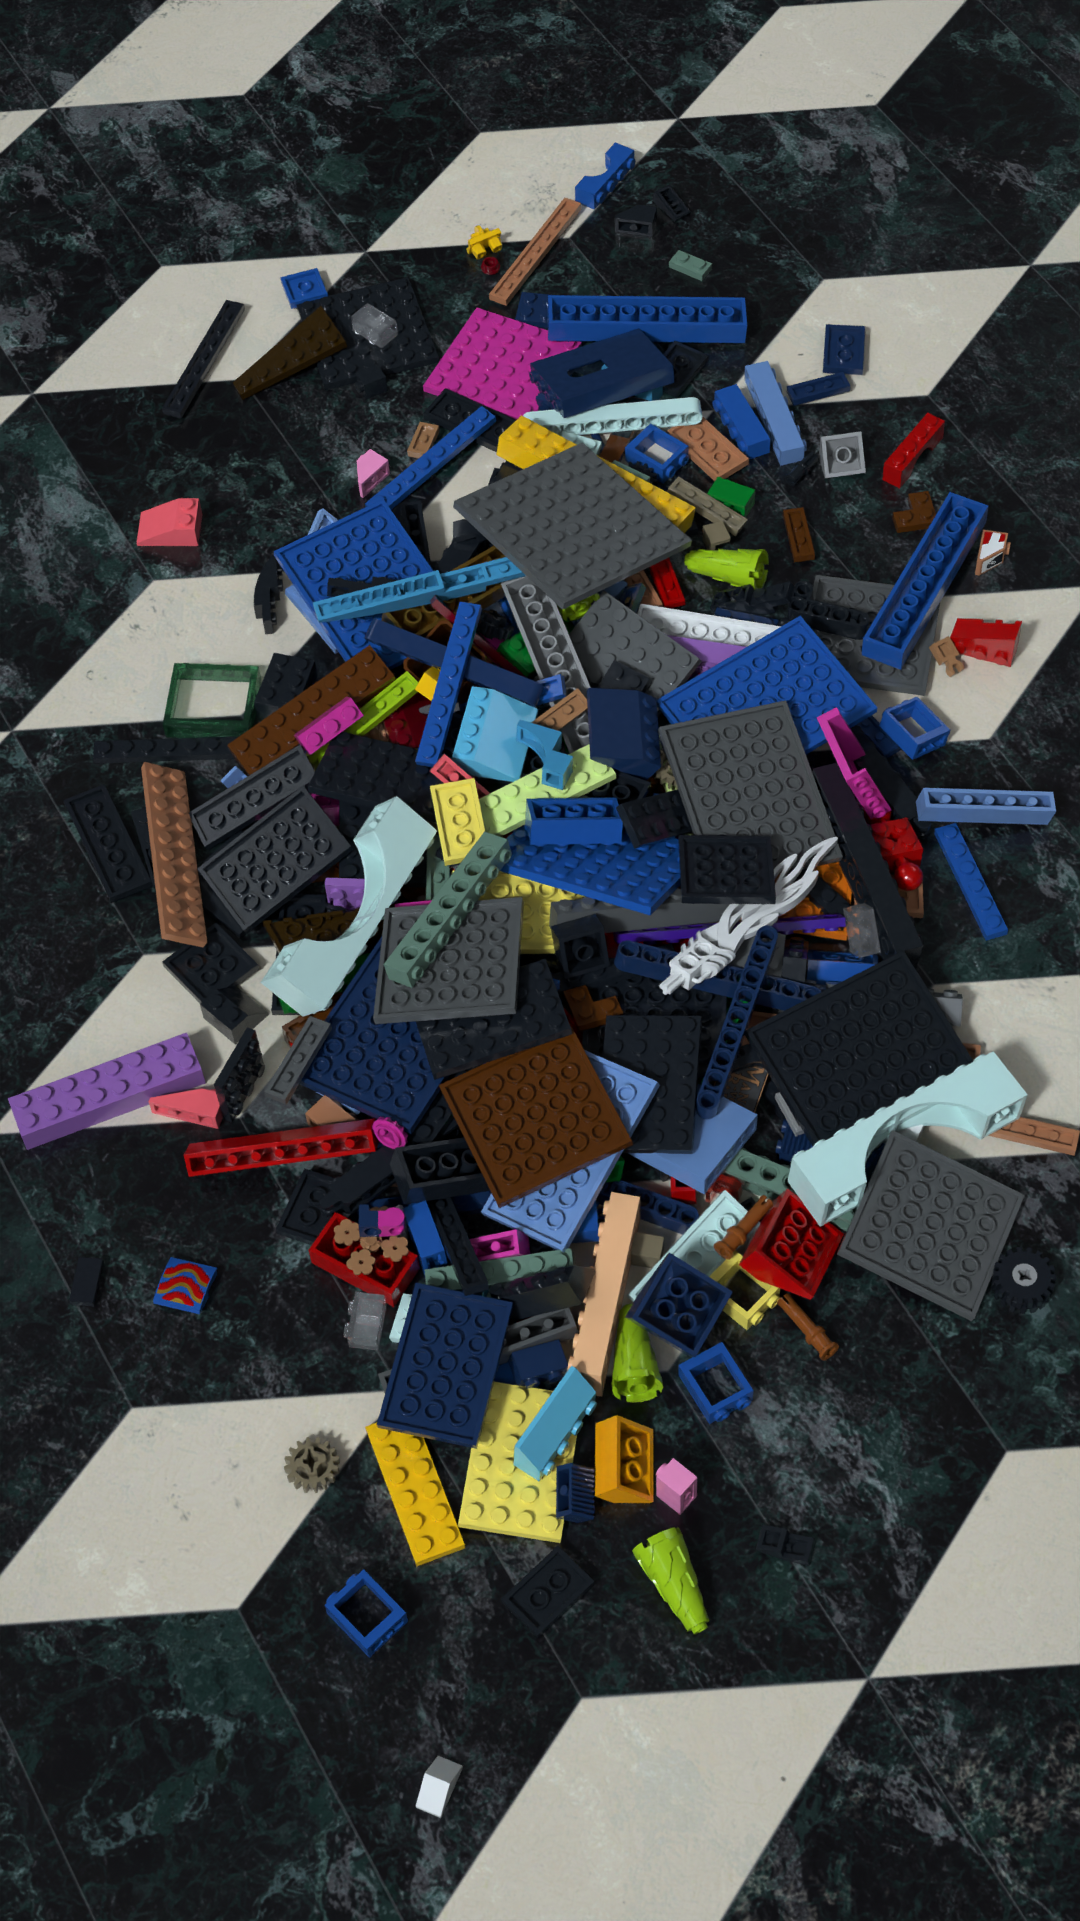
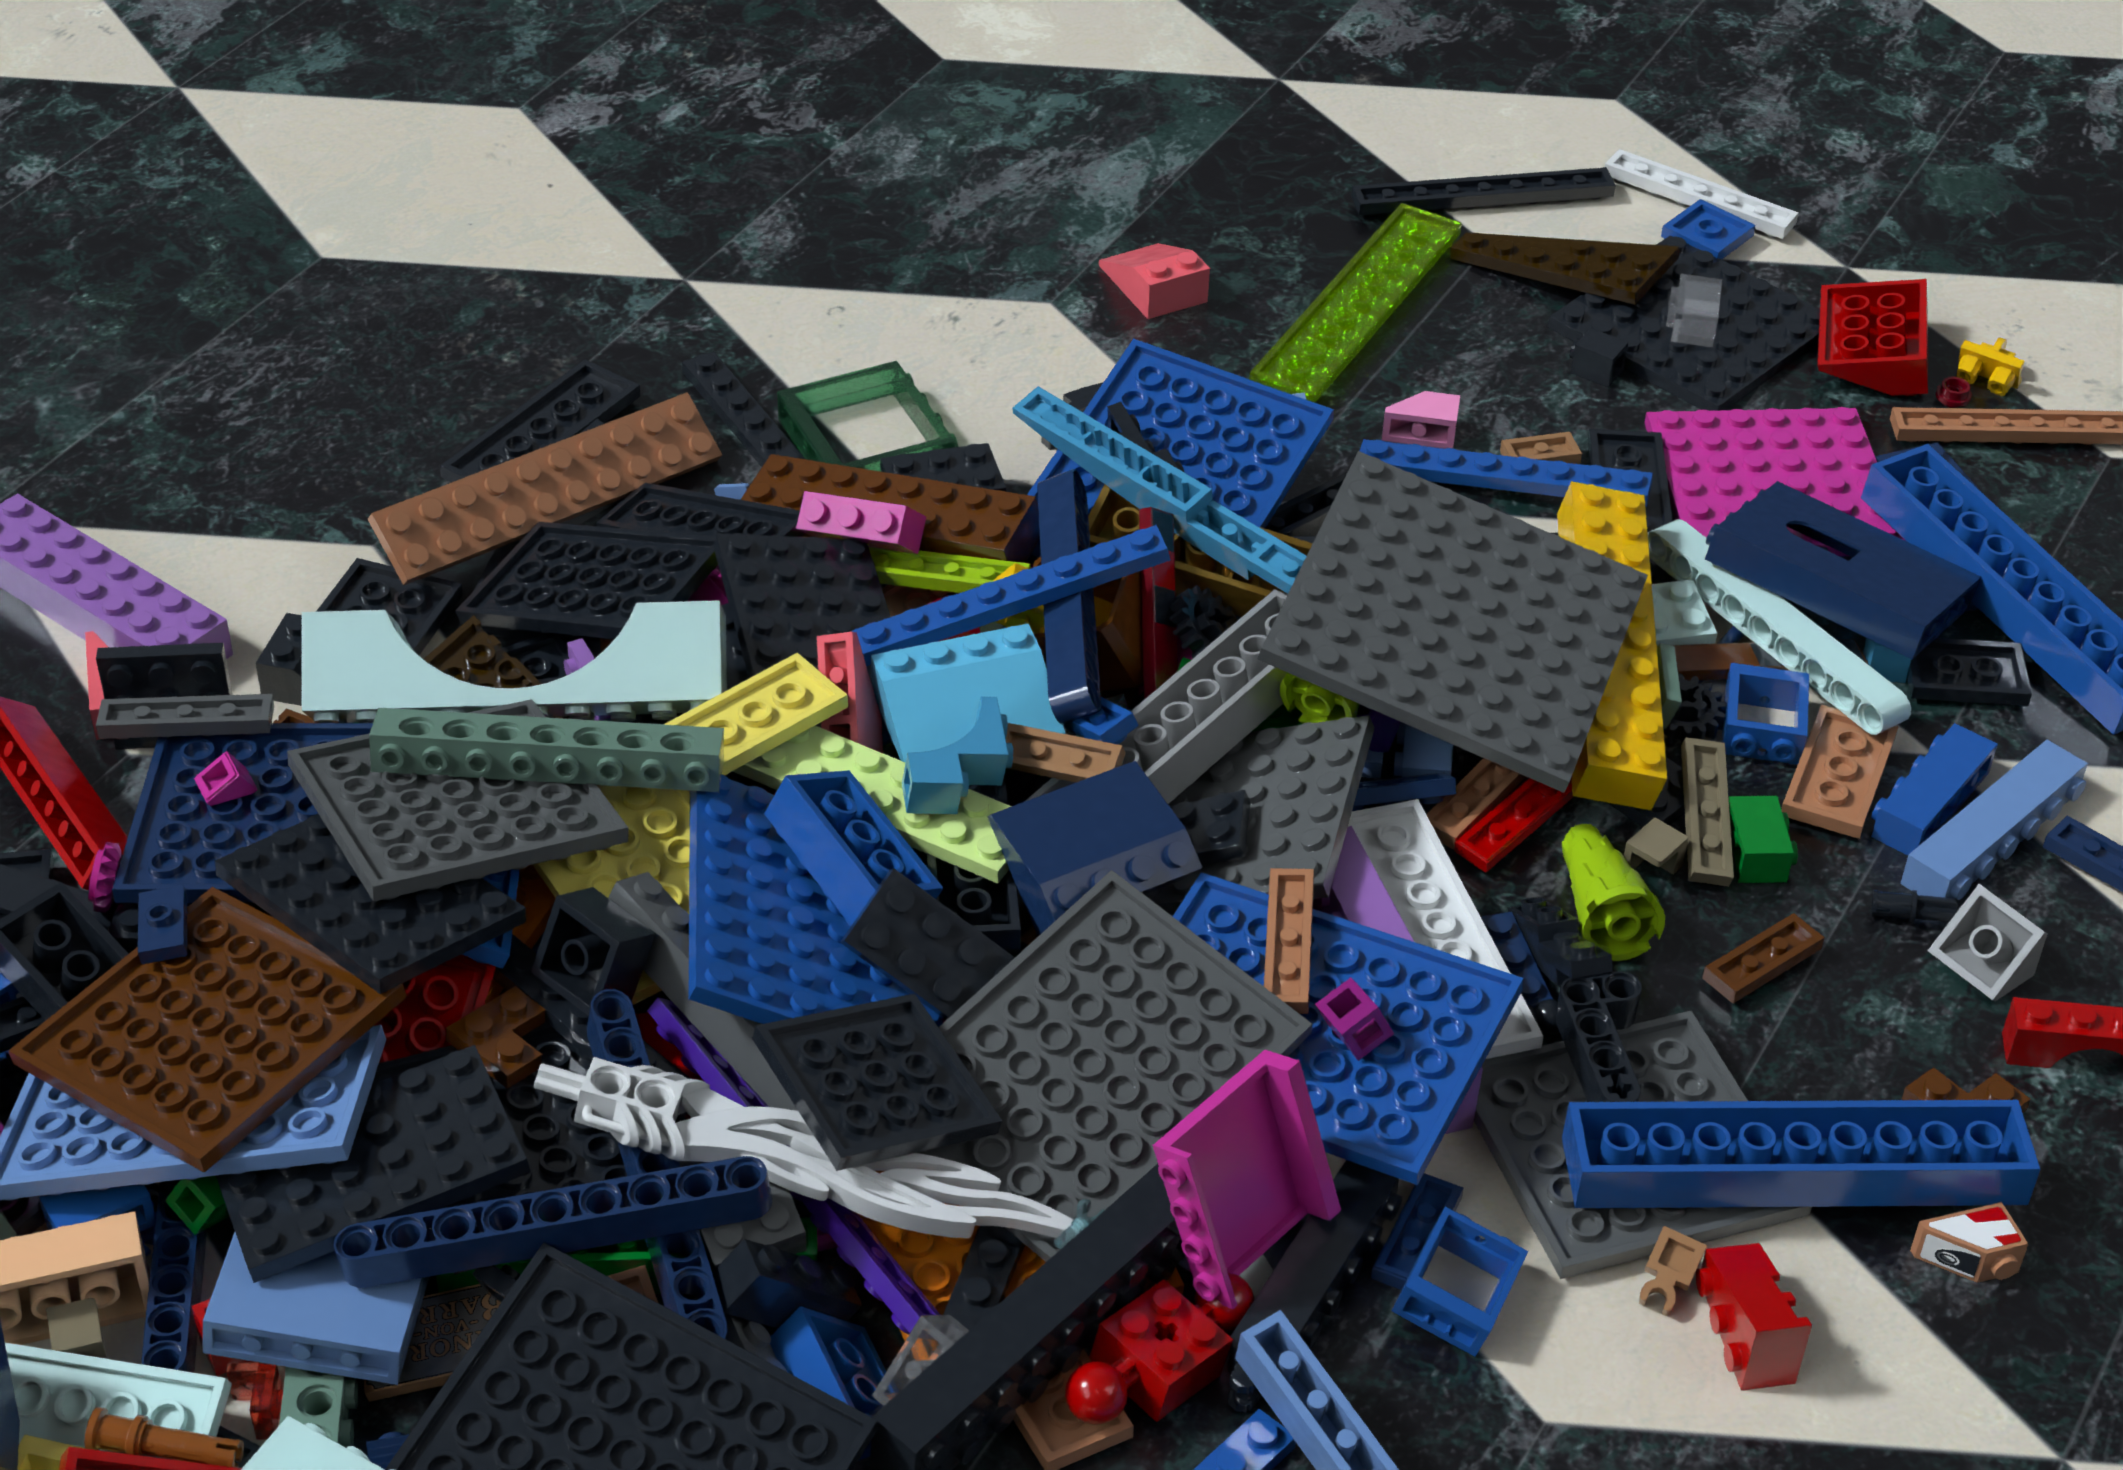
camera: 55 degrees right, 15 degrees down
(256, 454) = (1356, 302): none -> clear neon green plate
(271, 275) = (1688, 189): none -> white plate
(359, 1058) = (225, 780): none -> dark pink slope
(437, 268) = (1876, 335): none -> red slope
(457, 1112) = (162, 924): none -> dark blue plate
(724, 684) = (1289, 936): none -> nougat plate
(795, 678) = (1354, 1018): none -> magenta brick
(826, 835) = (1077, 1225): none -> clear light blue hand

